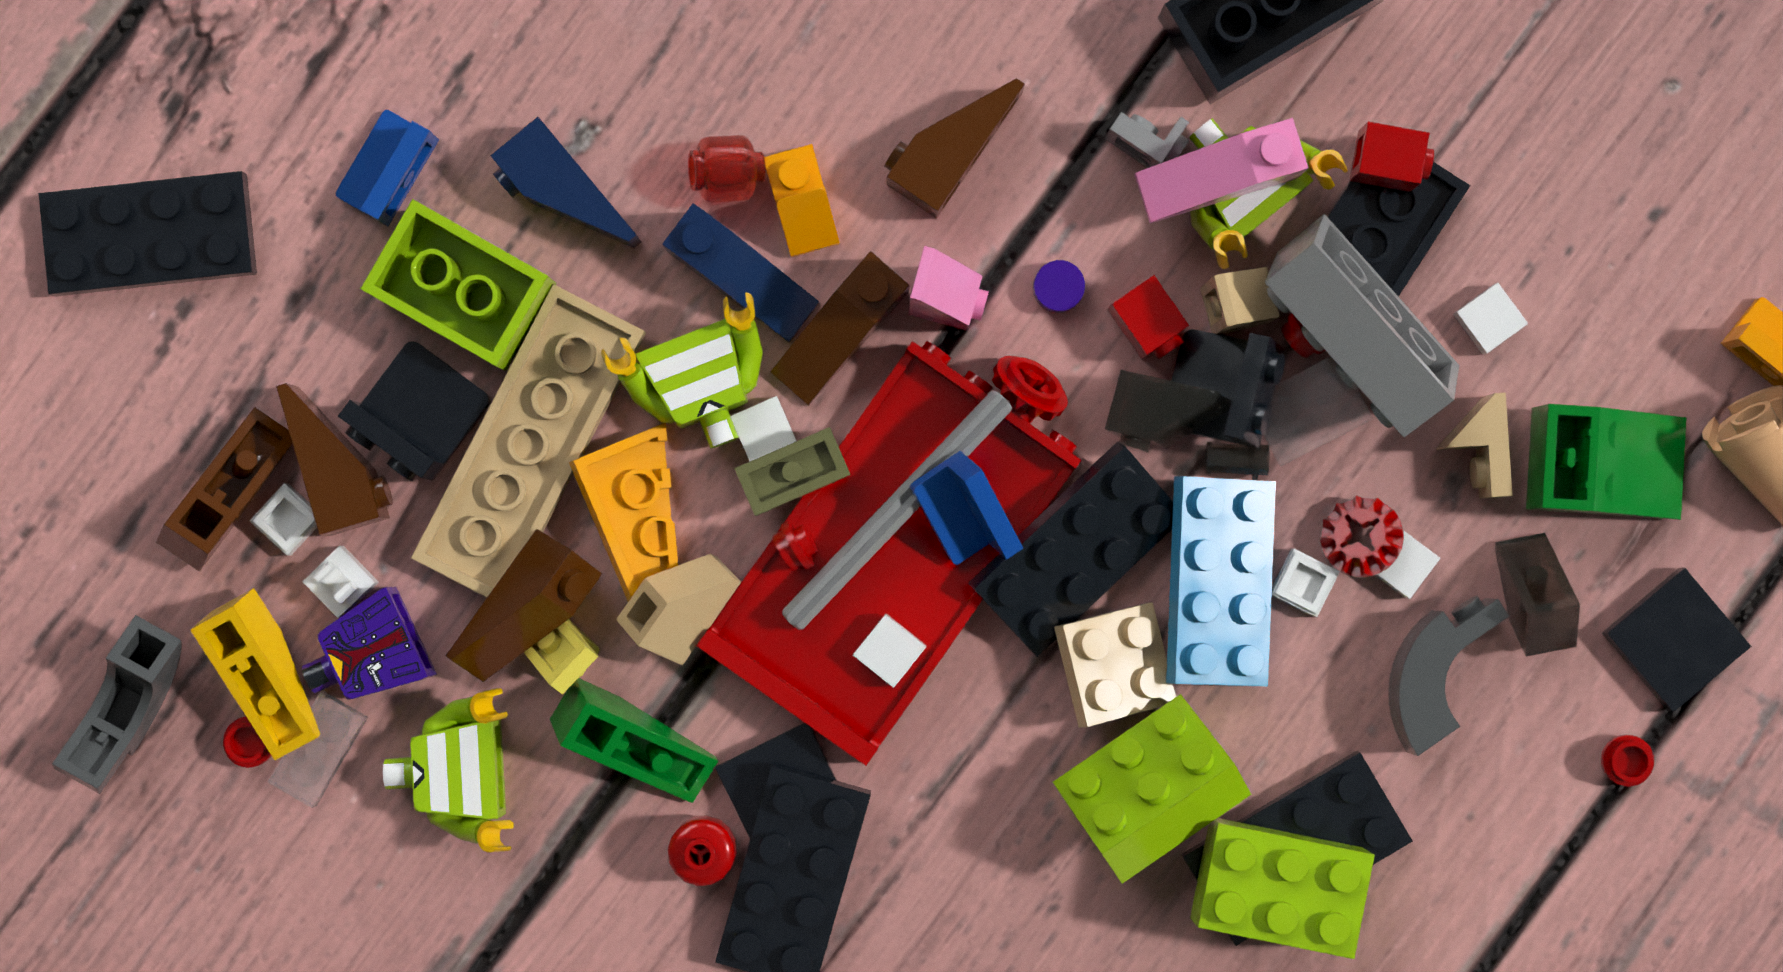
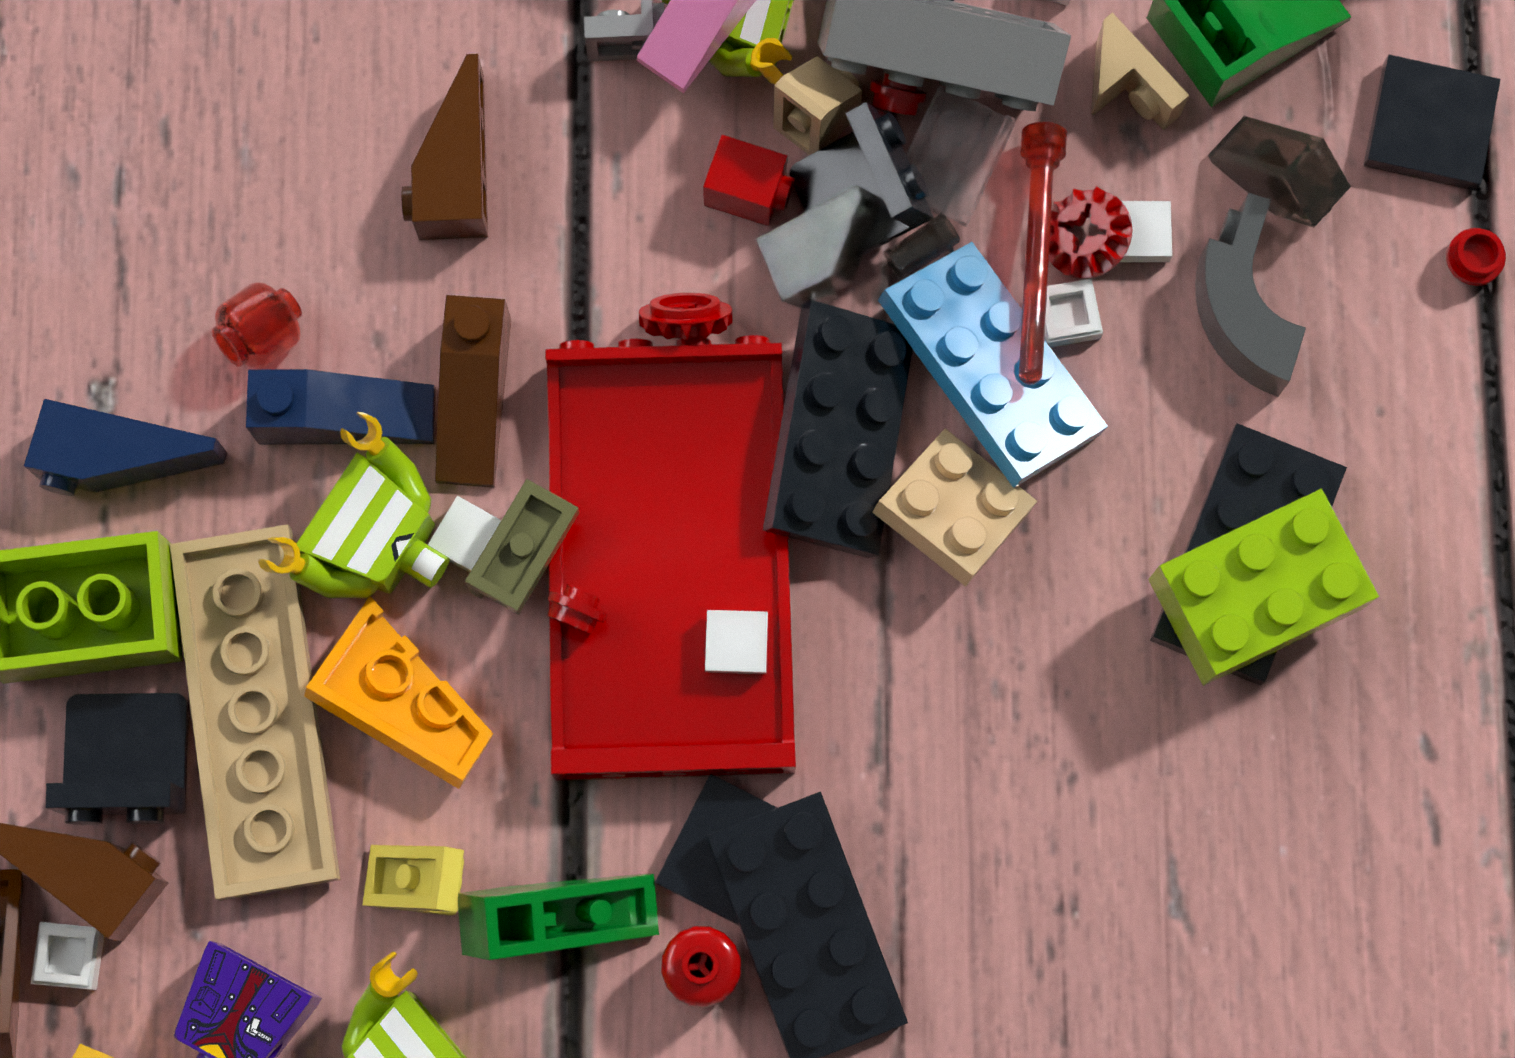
camera: 35 degrees left, 10 degrees down
(340, 581) = (161, 976): white tile -> none
(526, 604) = (359, 858): reddish brown slope -> none
(678, 606) = (507, 751): tan slope -> none
(801, 200) = (351, 307): light orange slope -> none
(891, 514) = (645, 510): light grey axle -> none
(946, 291) = (542, 282): bright pink slope -> none
(964, 510) = (709, 459): blue panel -> none
(1059, 286) = (644, 214): dark purple tile -> none
(1152, 788) = (1075, 587): lime brick -> none
(1378, 452) = (1042, 148): none -> clear red piece

